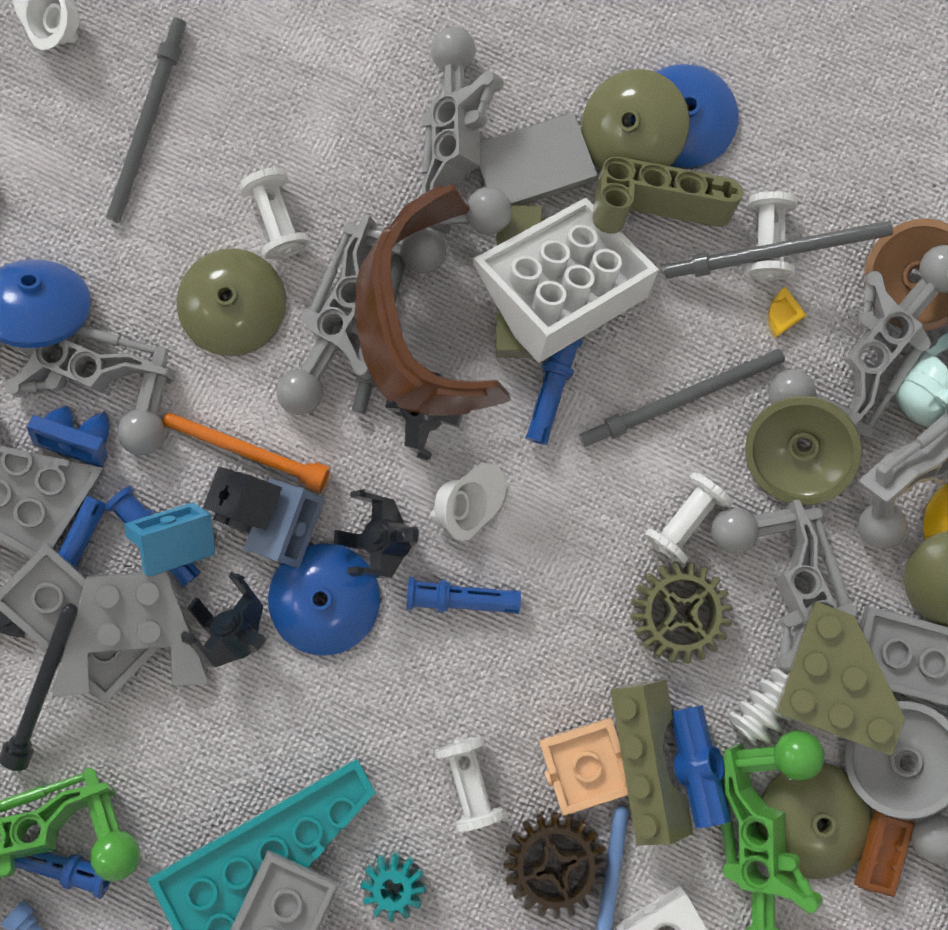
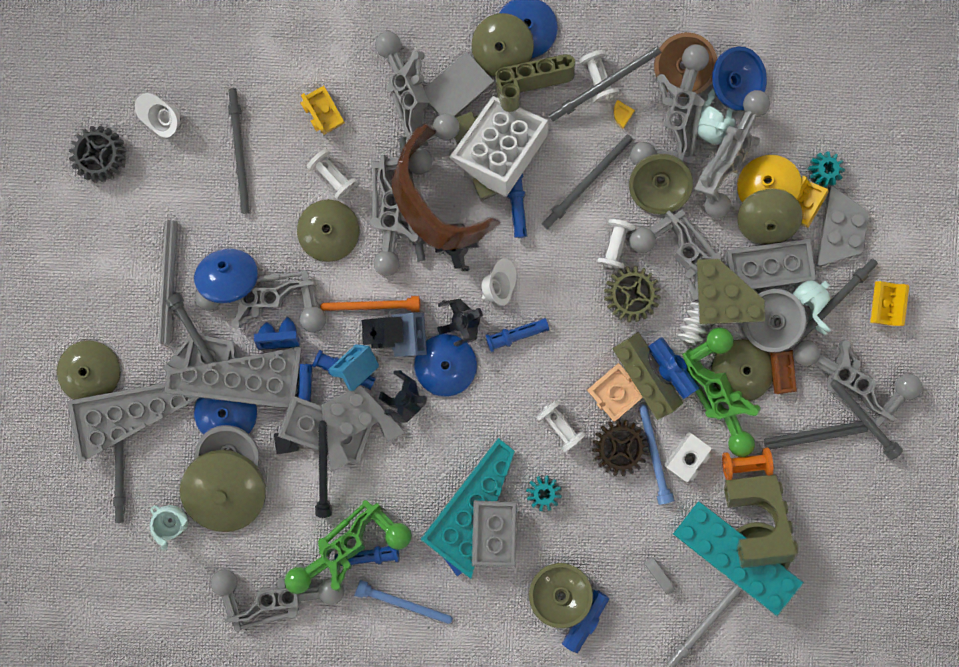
camera: 25 degrees left, 5 degrees up
(304, 109) = (323, 110): none -> yellow bracket

